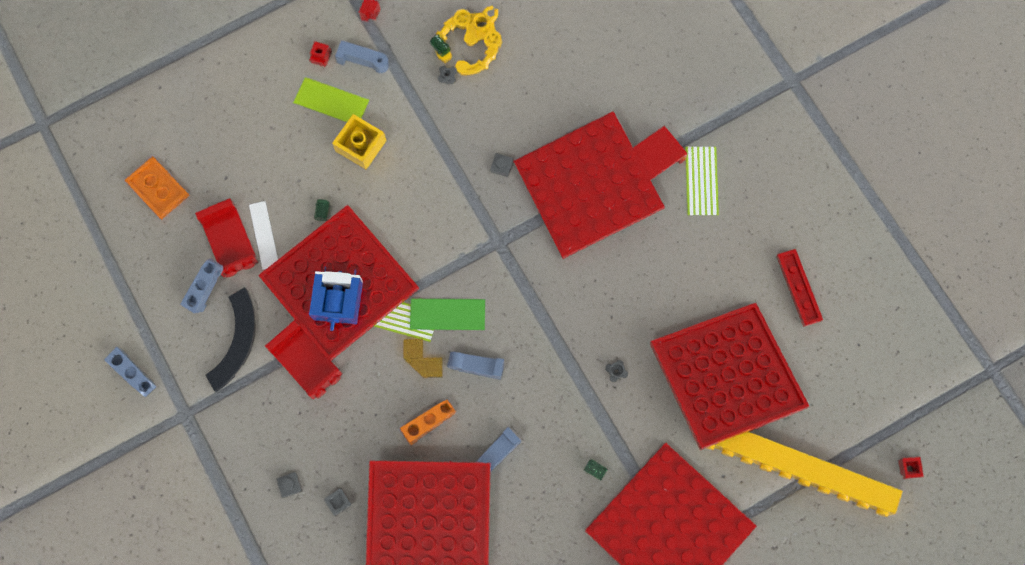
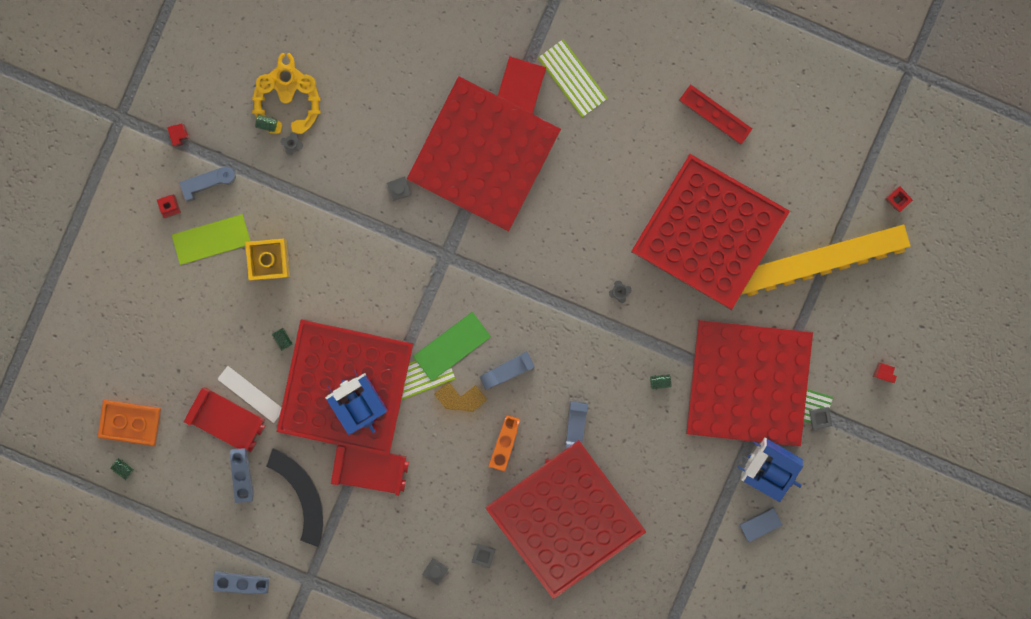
camera: 35 degrees left, 15 degrees up
(121, 216) = (122, 469): none -> clear green piece

